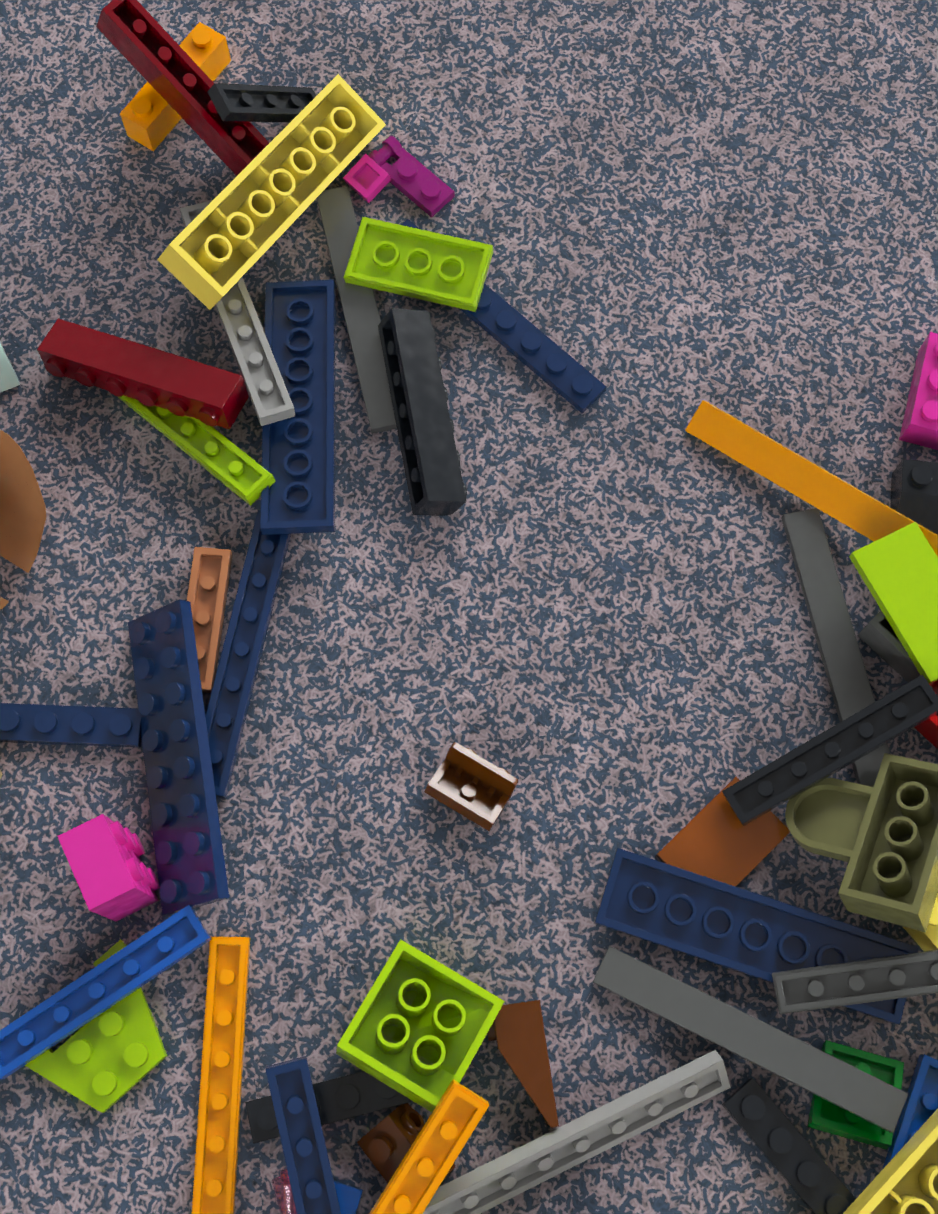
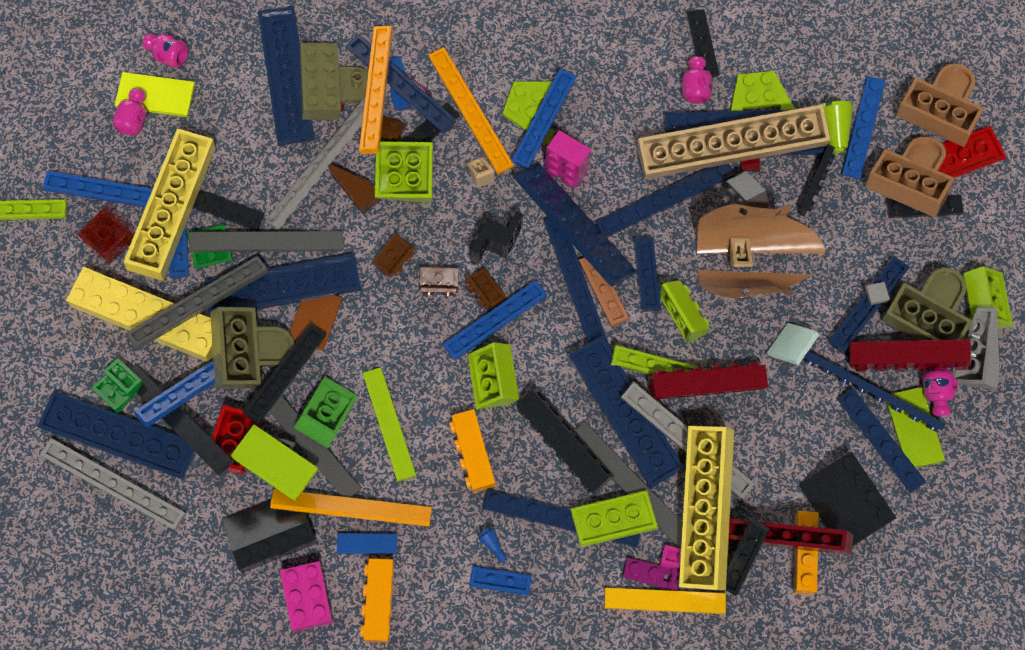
camera: 150 degrees right, 0 degrees up
(65, 122) = (848, 499): none -> black slope
(100, 505) = (683, 310): none -> lime slope
(114, 606) = (647, 274): none -> dark blue plate
(276, 959) = (480, 172): none -> tan slope
(328, 798) = (496, 237): none -> black bracket
(400, 727) = (485, 289): none -> reddish brown bracket
(414, 666) = (495, 320): none -> blue plate
(434, 145) = (665, 601): none -> yellow tile
(474, 572) = (493, 376): none -> lime slope
(526, 876) = (393, 256): none -> reddish brown bracket
(573, 474) = (473, 451): none -> light orange brick
(620, 338) = (490, 540): none -> blue cone
(636, 278) = (500, 581): none -> blue tile
(685, 595) = (389, 424): none -> lime tile
(784, 658) = (325, 412): none -> bright green slope
(813, 430) = (366, 543): none -> blue tile
(837, 337) = (378, 600): none -> light orange brick

